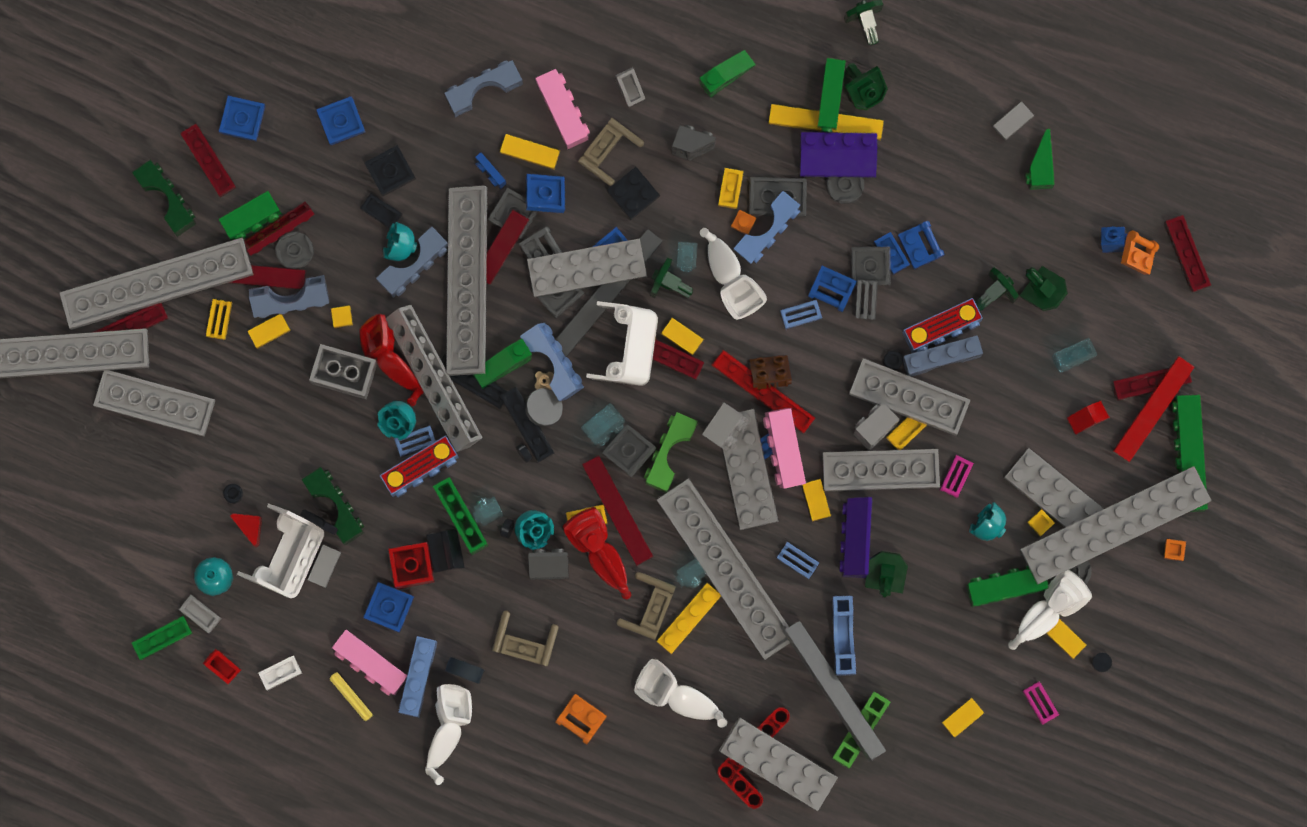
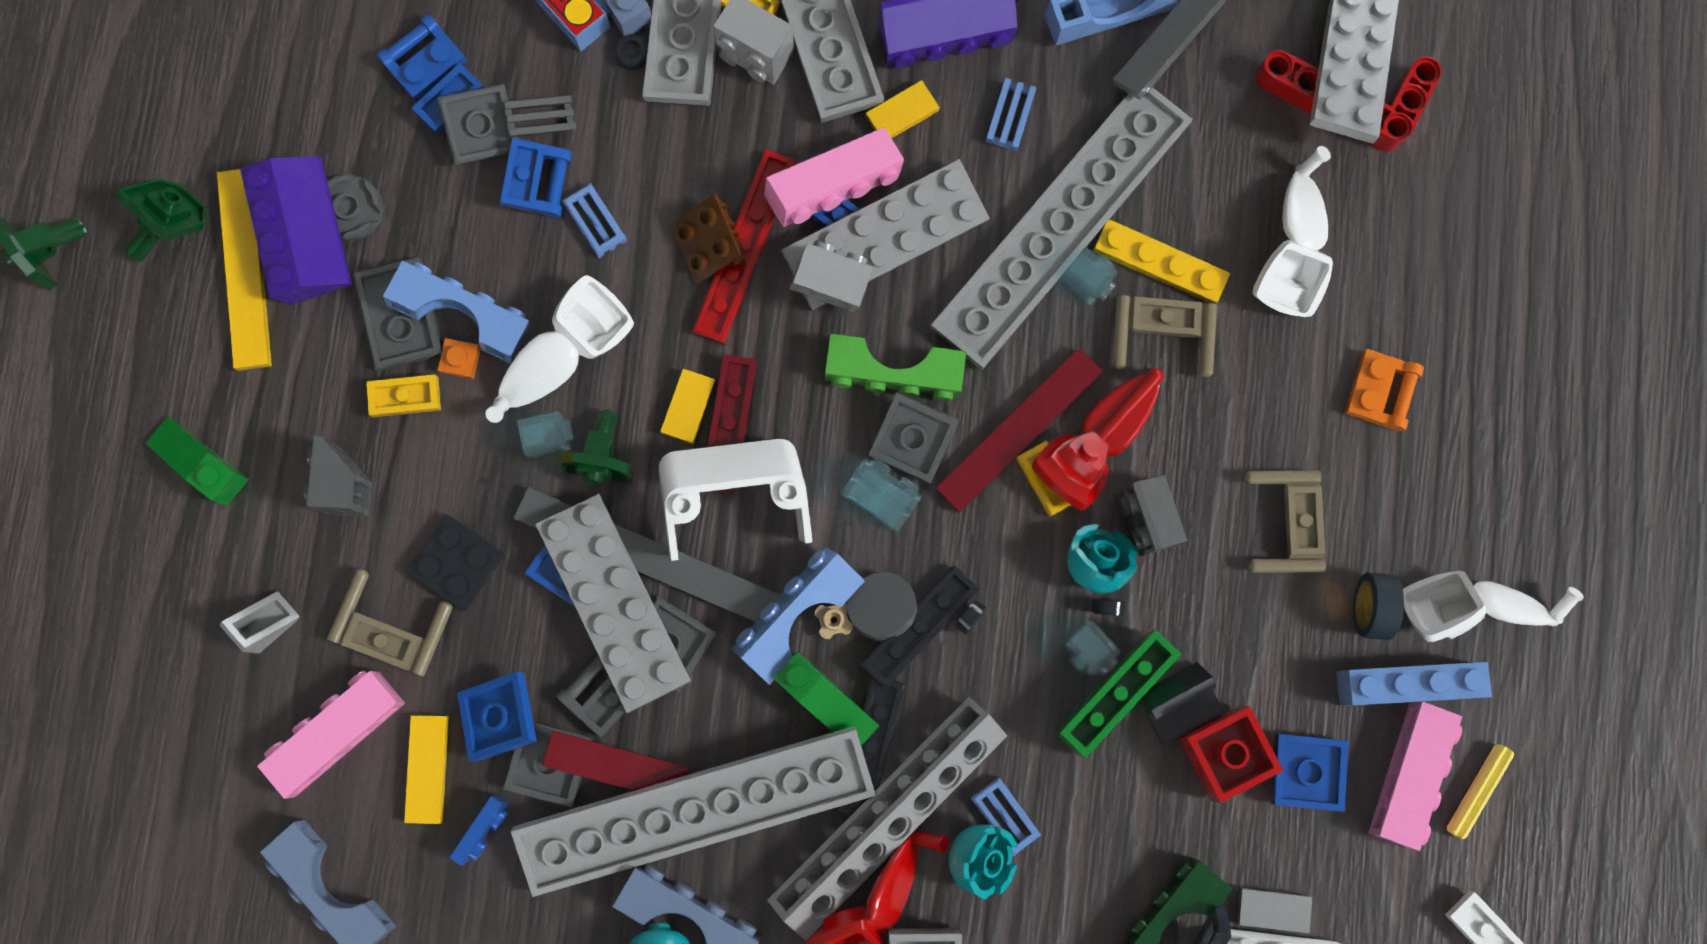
camera: 115 degrees left, 0 degrees up
(419, 466) = (1052, 795): brick -> none
(831, 94) = (185, 265): green slope -> none

